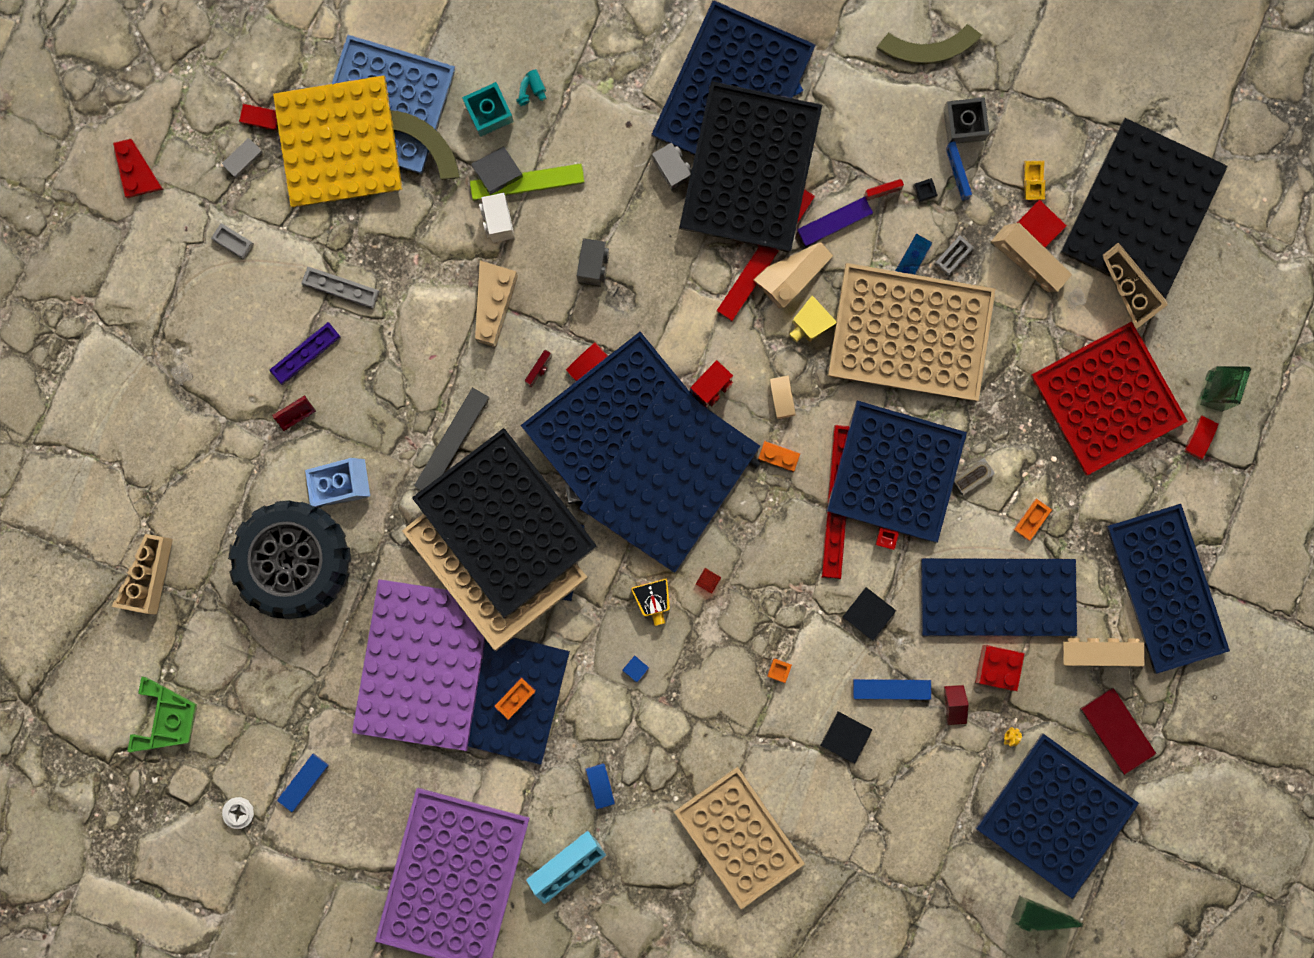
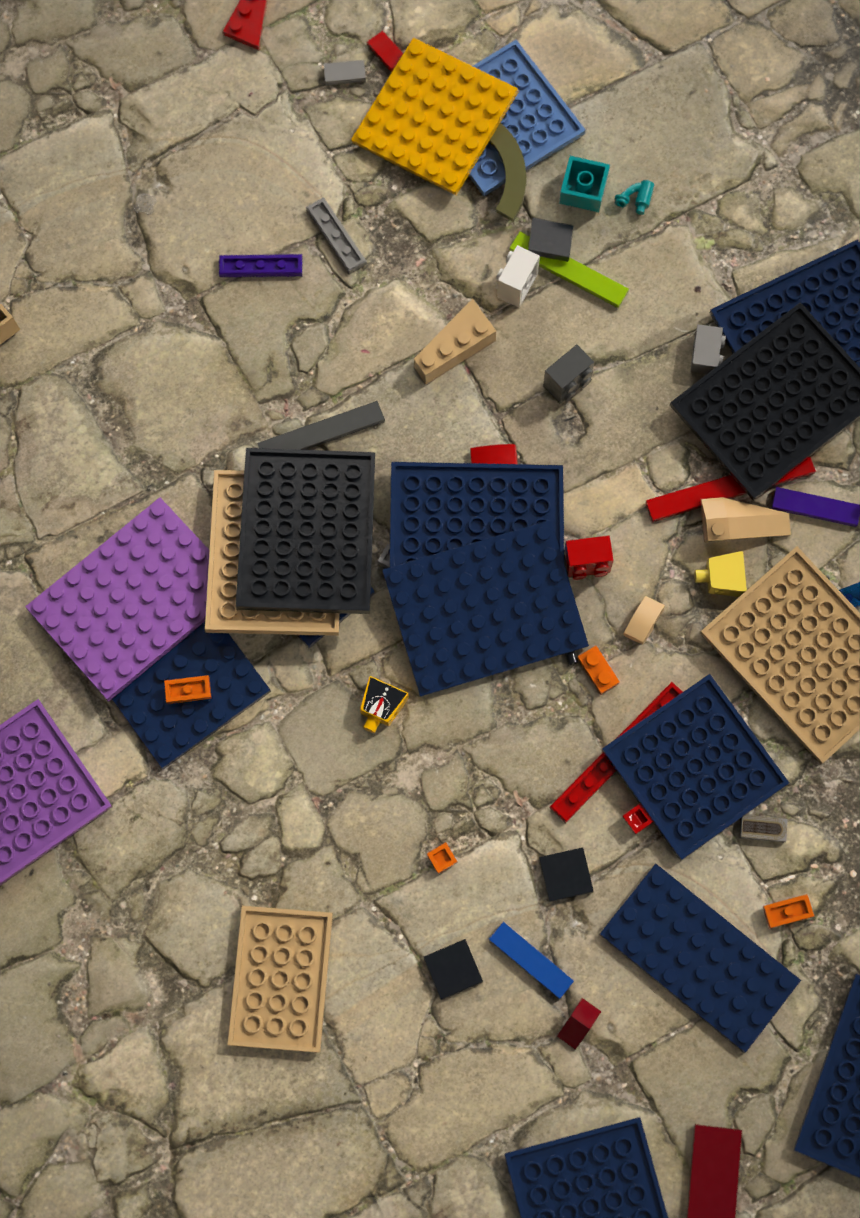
camera: 40 degrees right, 10 degrees down
(232, 241) = (279, 131): light grey tile -> none
(294, 413) = (209, 305): dark red plate -> none
(319, 583) = (107, 455): black wheel -> none
(337, 482) = (196, 390): light blue slope -> none
(539, 368) = (447, 429): dark red plate -> none
(565, 867) = (105, 874): medium azure brick -> none
(600, 786) = (196, 829): blue slope -> none
(635, 668) = (315, 752): blue tile -> none
(708, 580) = (444, 727): clear red tile -> none
(1000, 667) = (648, 1021): red brick -> none
(1012, 737) = (608, 1096): yellow plate -> none
(1103, 653) = (759, 1088): tan wedge -> none

